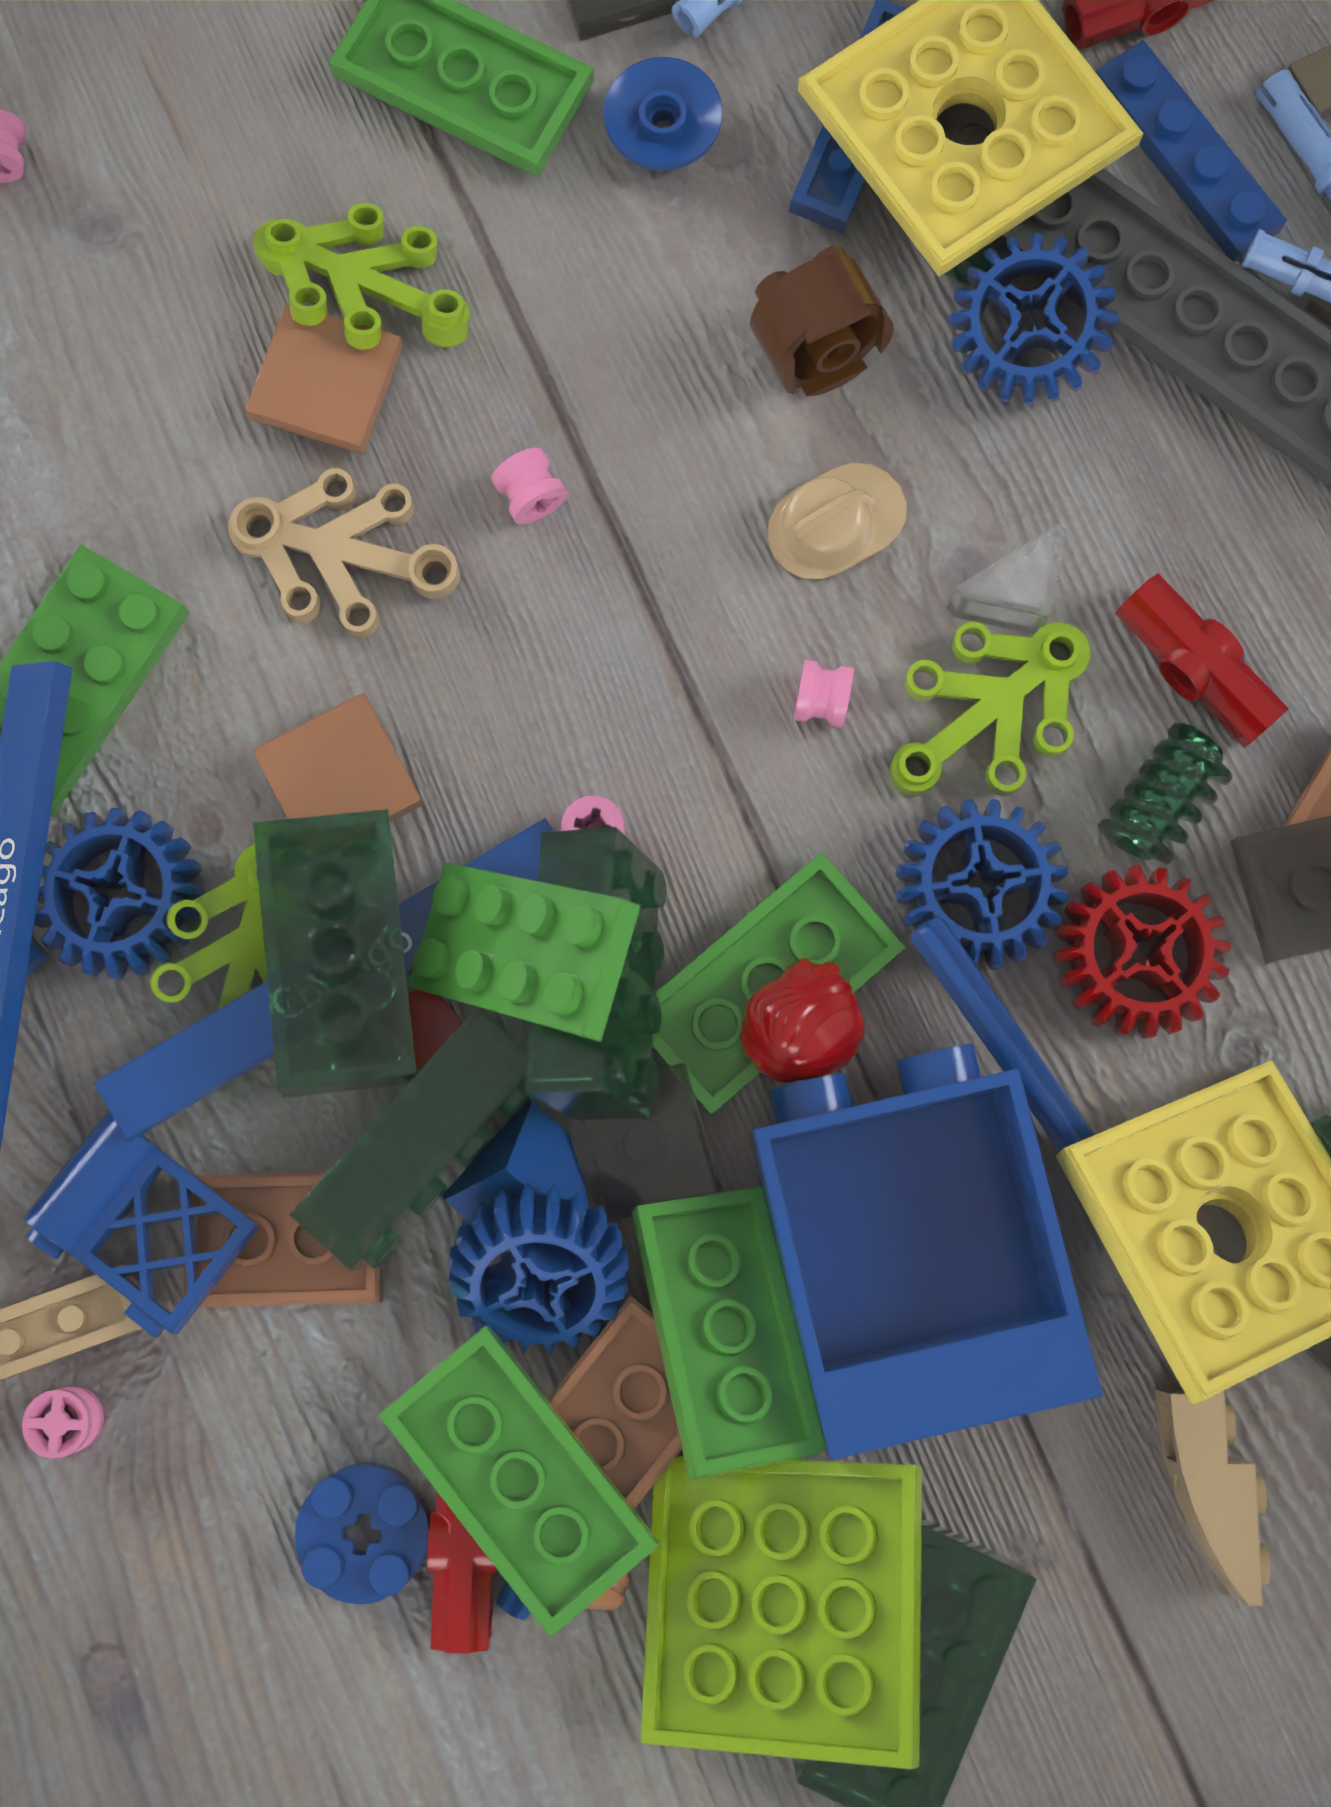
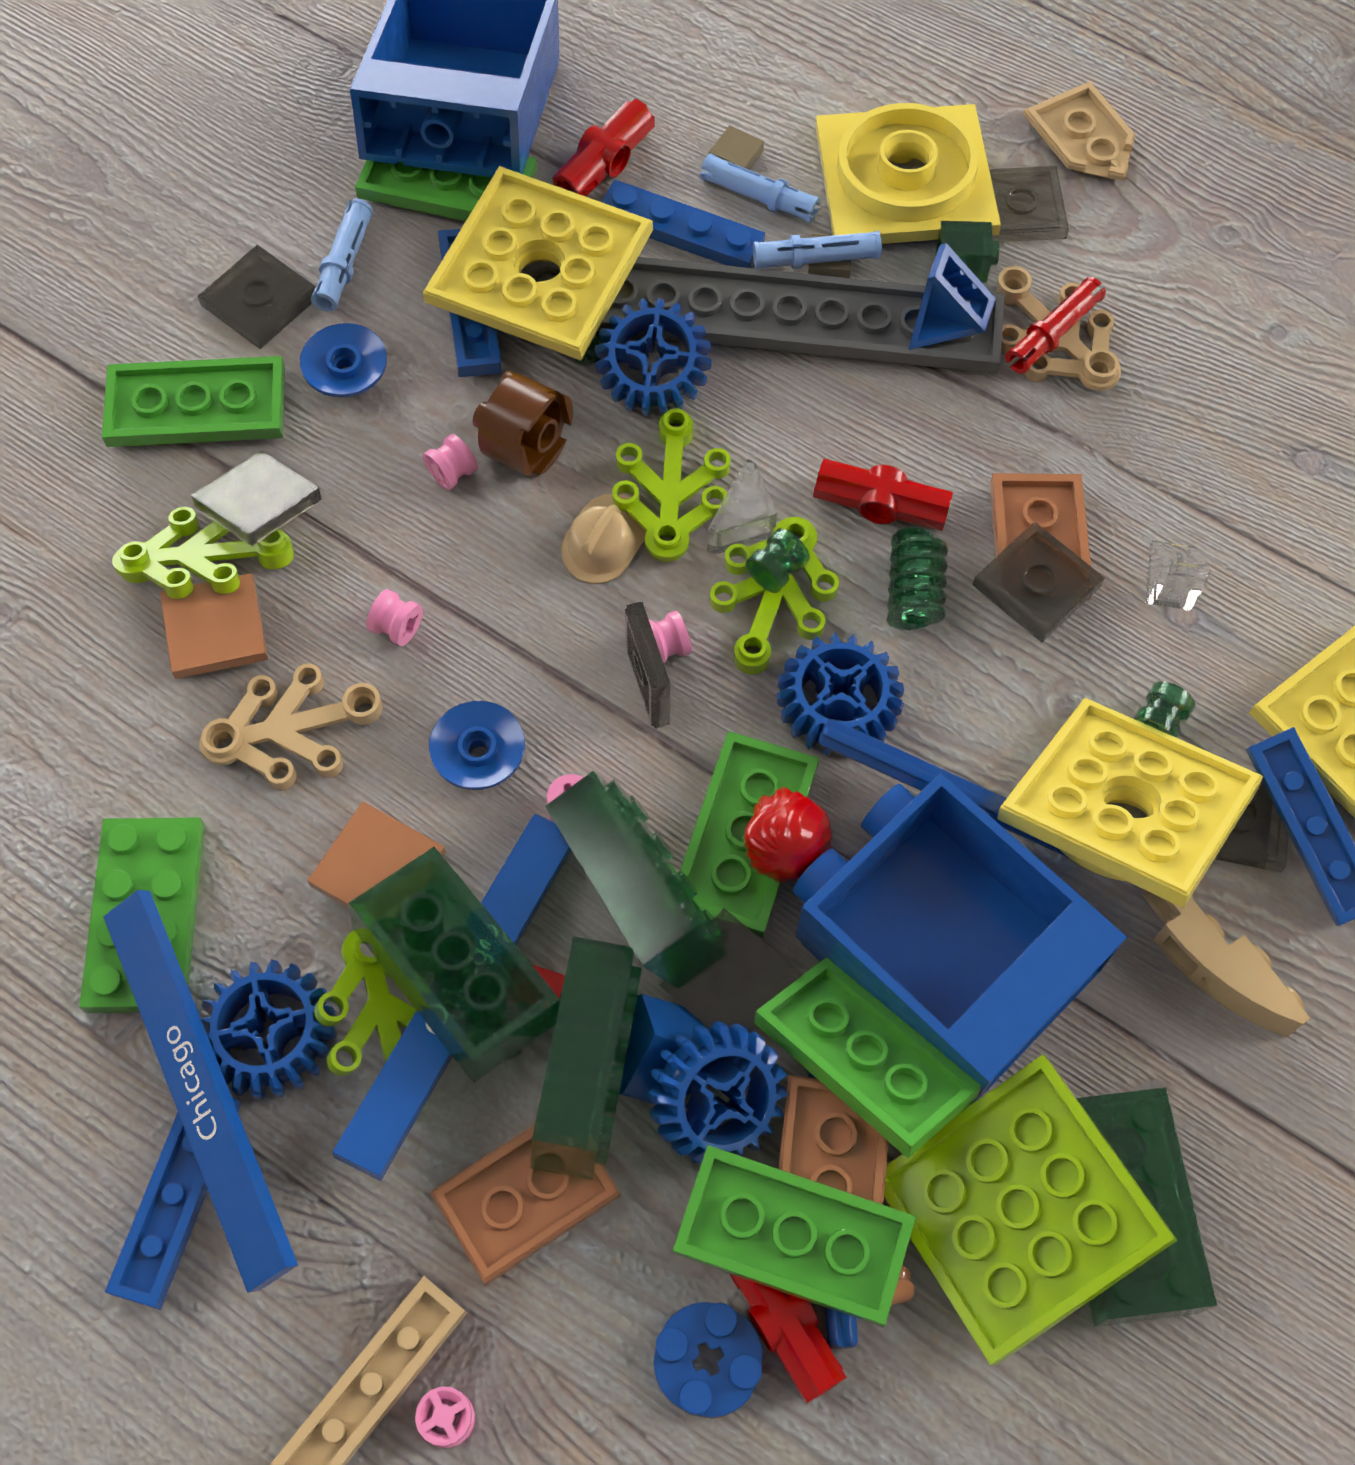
camera: 35 degrees left, 15 degrees down
(95, 1196) = (376, 1231): blue piece -> none
(459, 242) = (256, 498): none -> clear smoke tile
(523, 670) = (474, 726): none -> blue dish
(525, 948) = (582, 877): bright green plate -> none
(709, 321) = (450, 462): none -> bright pink wheel
(774, 718) = (647, 665): none -> clear smoke tile
(949, 507) = (670, 491): none -> lime plant
(1013, 676) = (779, 558): none -> clear green wheel
(1159, 967) = (1000, 683): red gear -> none

